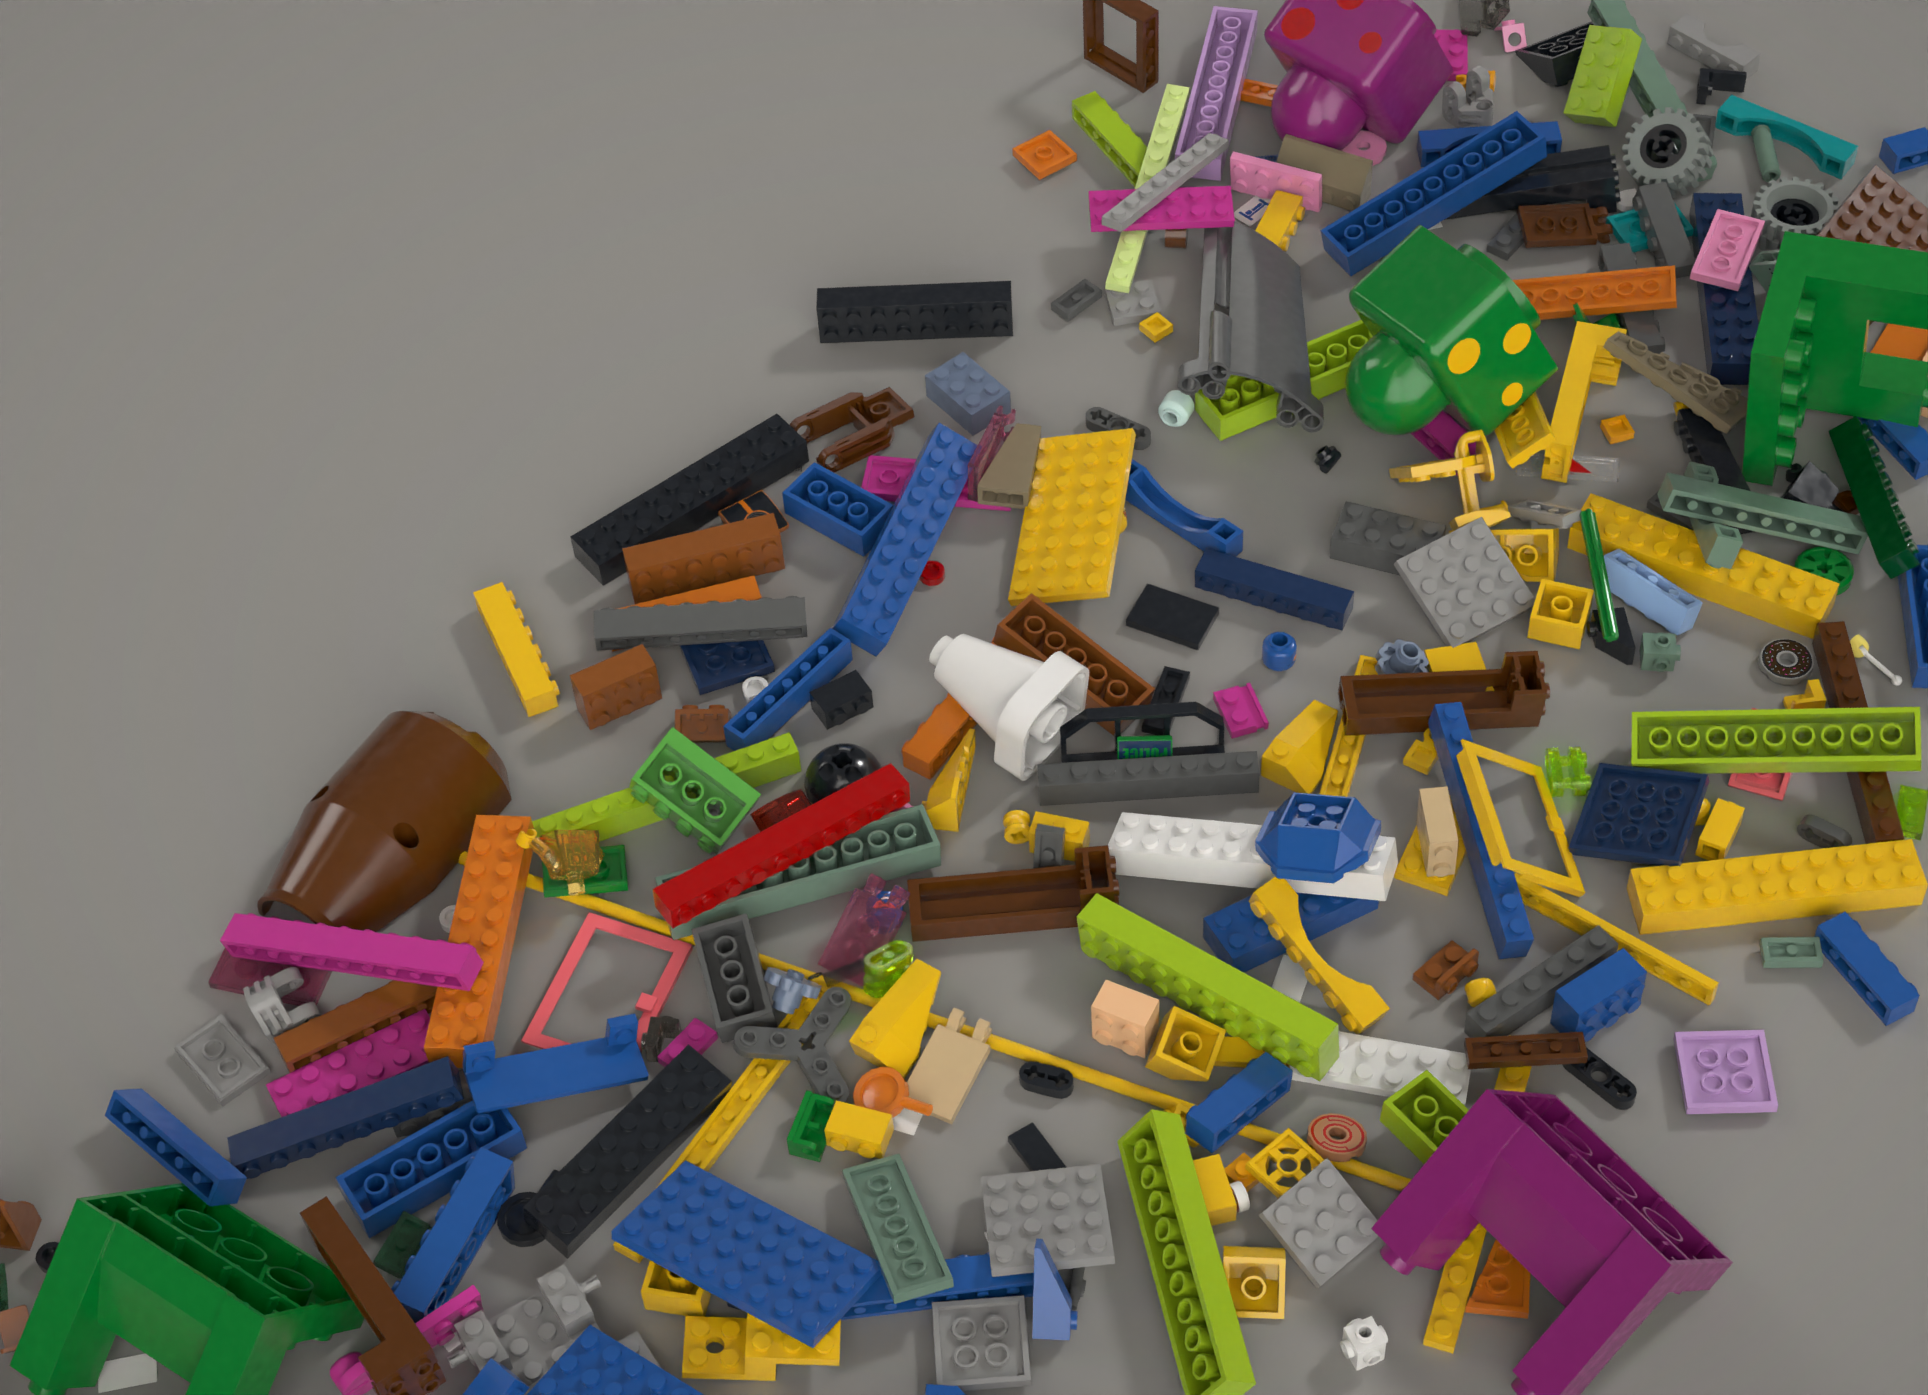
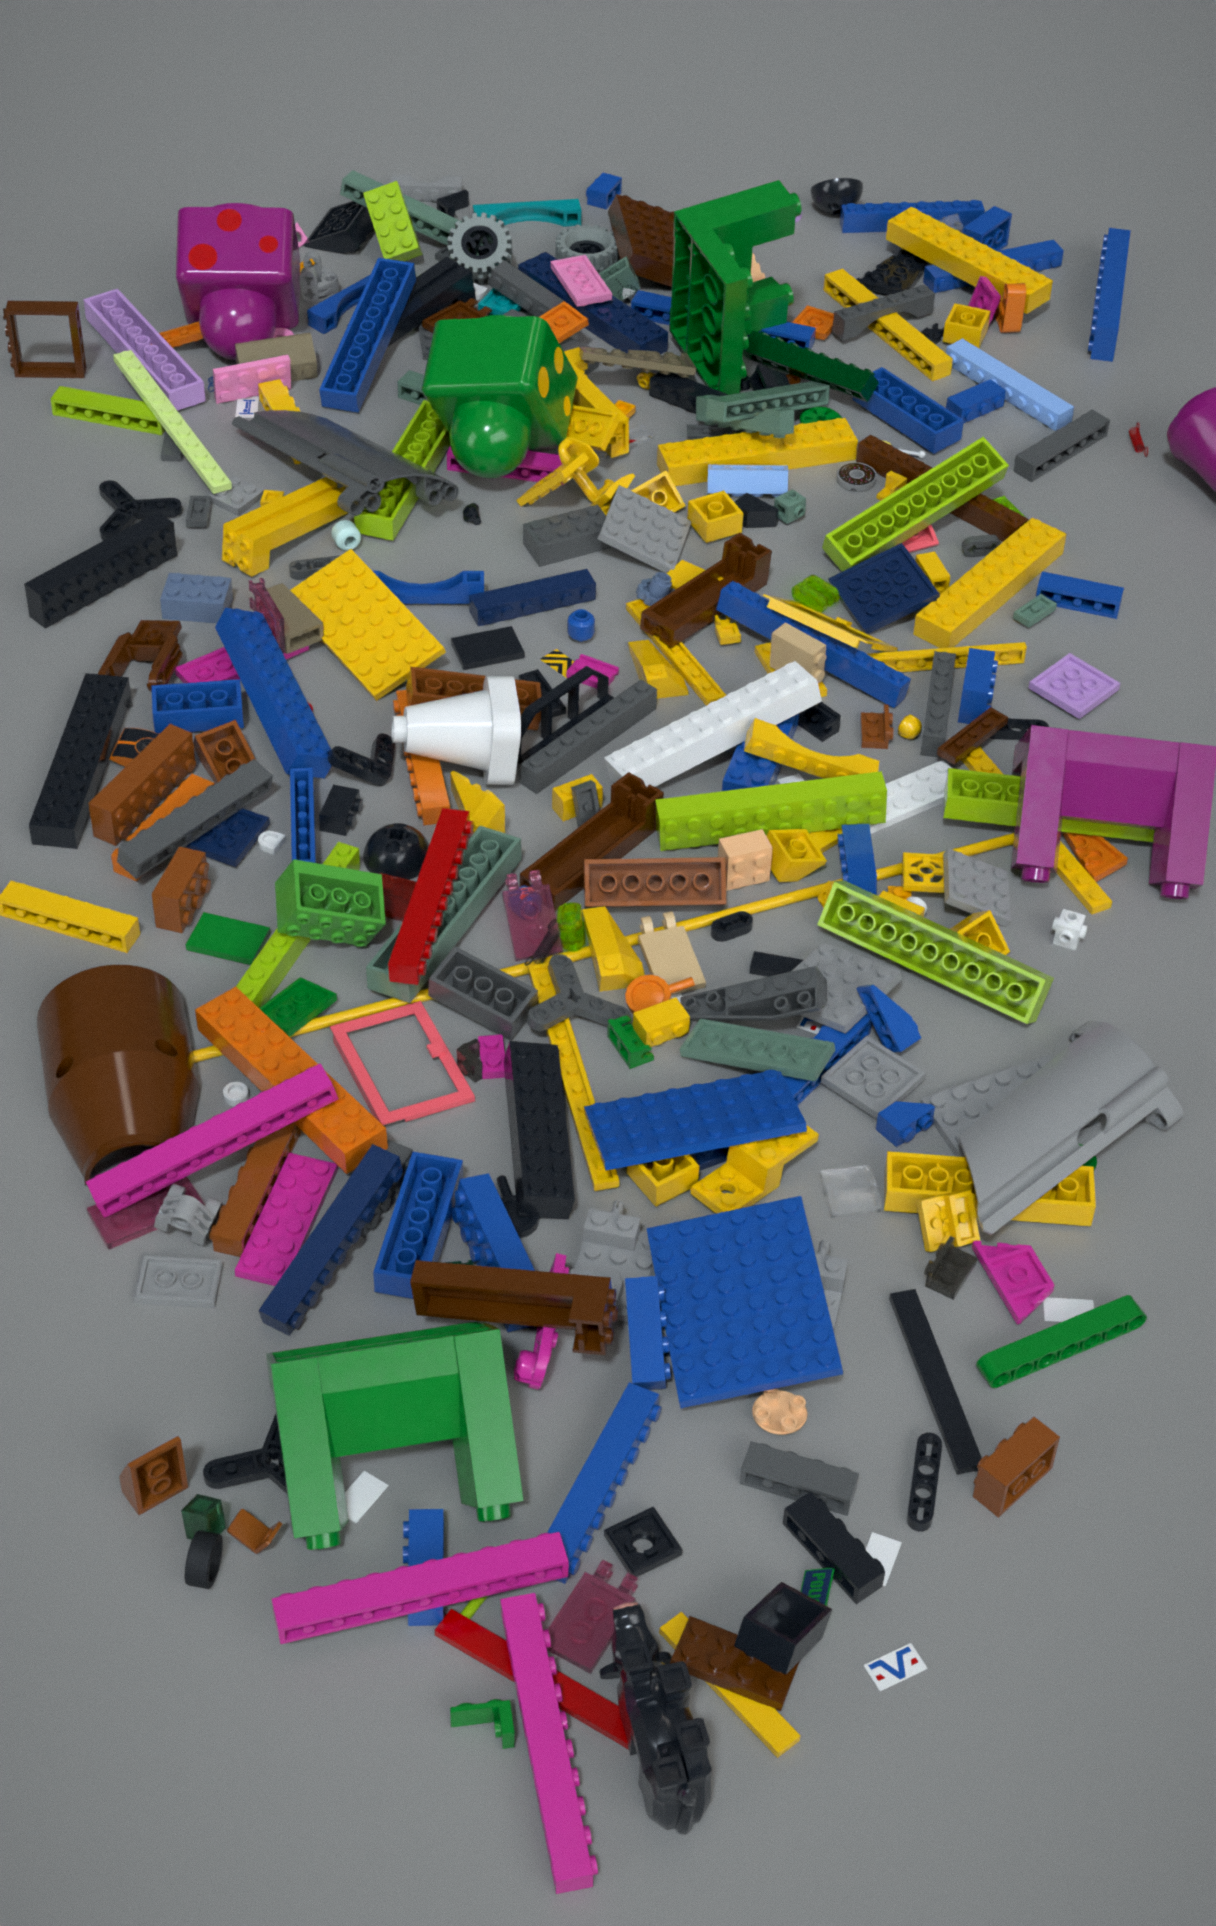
camera: 50 degrees left, 5 degrees down
(175, 1147) = (228, 1340): blue brick -> none
(554, 1070) = (438, 1115): blue bracket -> none
(566, 854) = (291, 991): clear yellow torso -> none
(610, 758) = (228, 938): none -> green tile
(702, 724) = (262, 879): dark orange bracket -> none
(790, 989) = (531, 970): sand blue plant -> none
(813, 573) = (222, 750): none -> dark orange slope
(921, 675) = (379, 770): none -> black beam
(955, 1182) = (761, 998): none -> dark grey wedge
(1008, 265) = (129, 509): none -> black piece
(1011, 980) = (654, 882): none -> dark orange brick
(1016, 826) = (543, 808): yellow wheel -> none
(1044, 154) = (65, 441): orange plate -> none
(1113, 357) = (253, 535): none -> yellow brick
(1144, 746) = (572, 716): slope -> none
(1165, 182) = (192, 405): light grey plate -> none
(1176, 238) = (218, 440): reddish brown piece -> none
(1179, 210) = (201, 425): dark pink plate -> none
(1225, 675) = (558, 661): none -> sticker
(1317, 837) = (756, 684): blue piece -> none
(1331, 1124) = (927, 842): nougat tile -> none
(1396, 916) = (820, 721): none -> black hinge
(1545, 513) = (645, 469): light grey plate -> none
(1599, 575) = (718, 480): green axle -> none
(1765, 153) = (525, 229): sand green axle -> none

